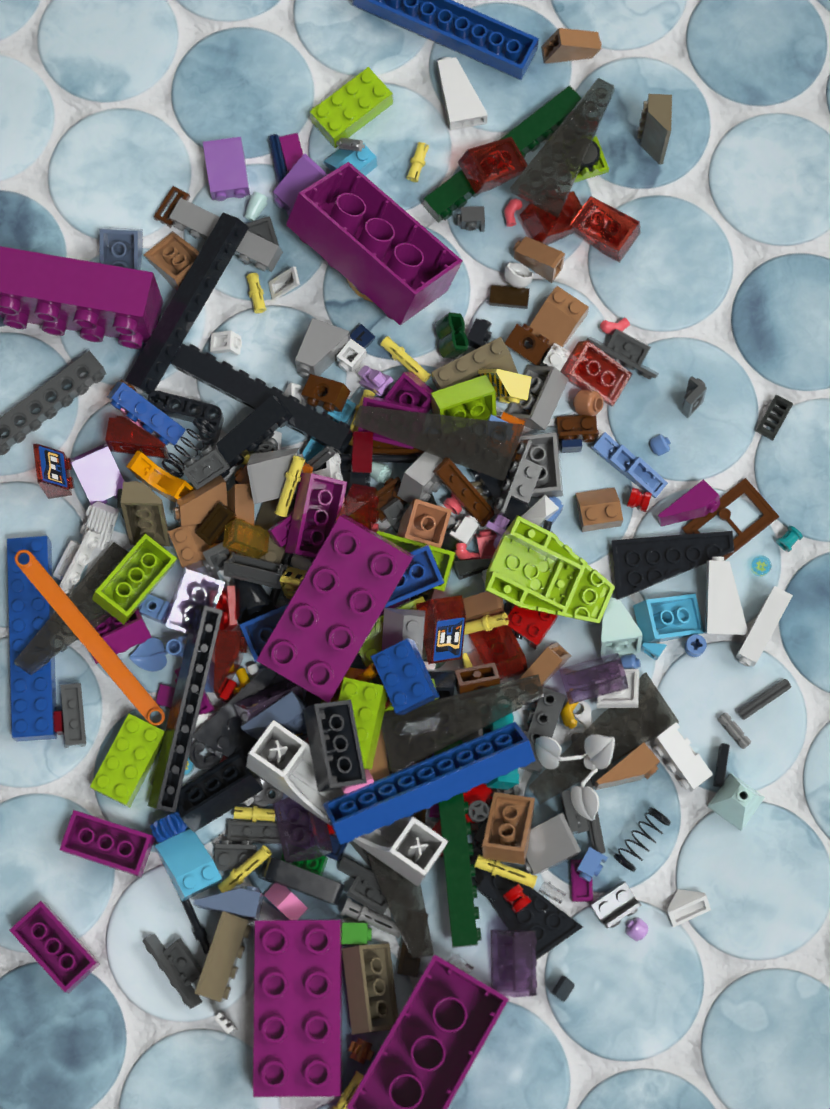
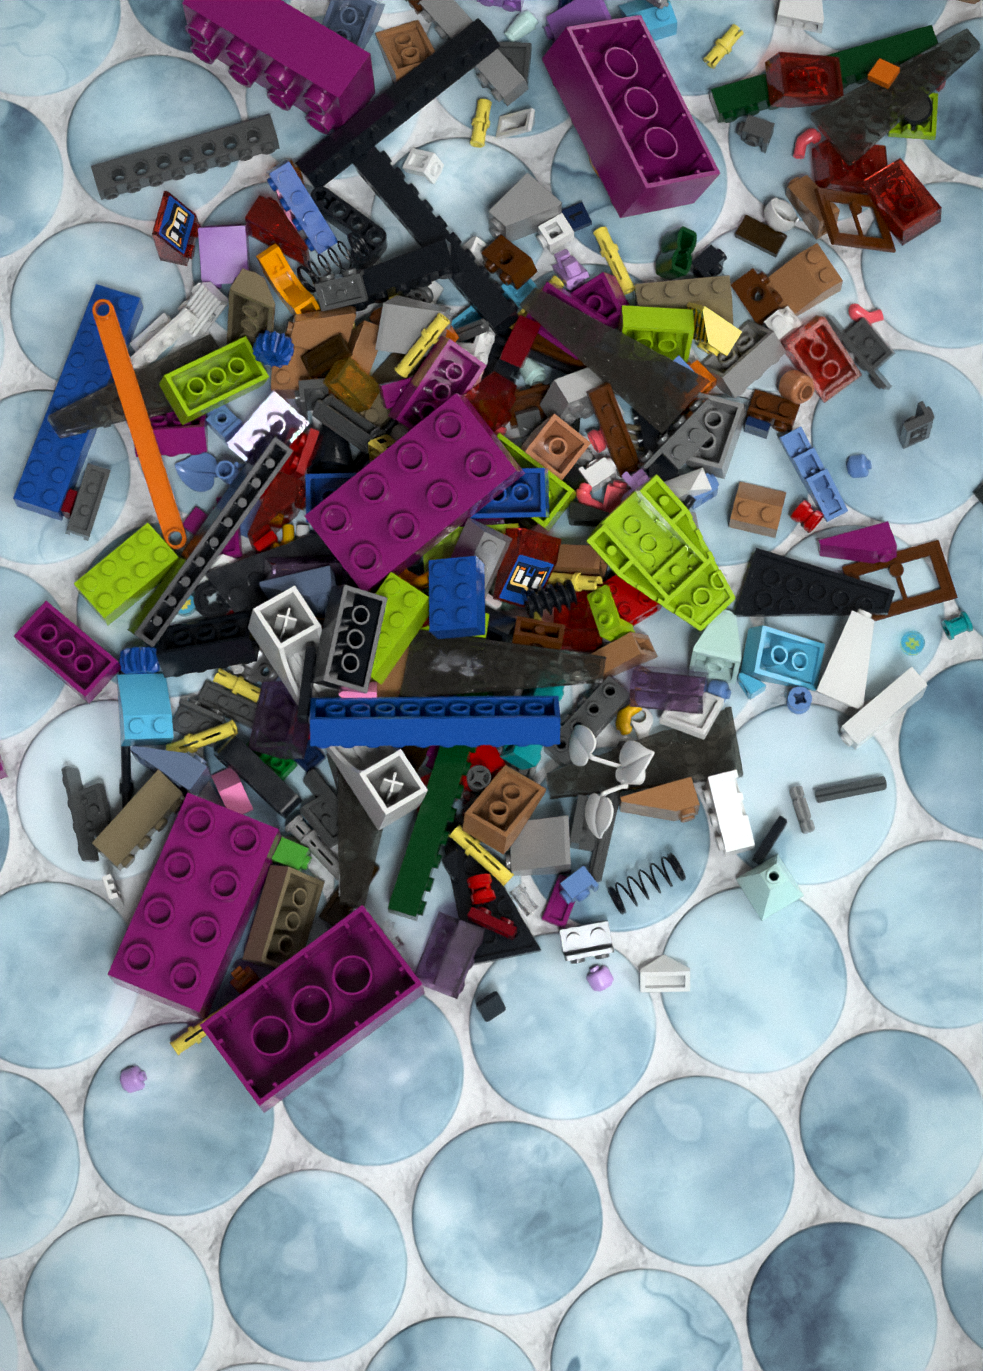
camera: 25 degrees right, 0 degrees up
(172, 535) = (273, 349): none -> blue gear
(315, 794) = (306, 685): none -> black tile
(473, 644) = (549, 598): none -> black piece
(523, 640) = (606, 615): none -> lime bracket
(528, 921) = (483, 918): none -> dark red plate
(552, 136) = (883, 73): none -> orange tile
(573, 242) = (855, 203): none -> reddish brown door

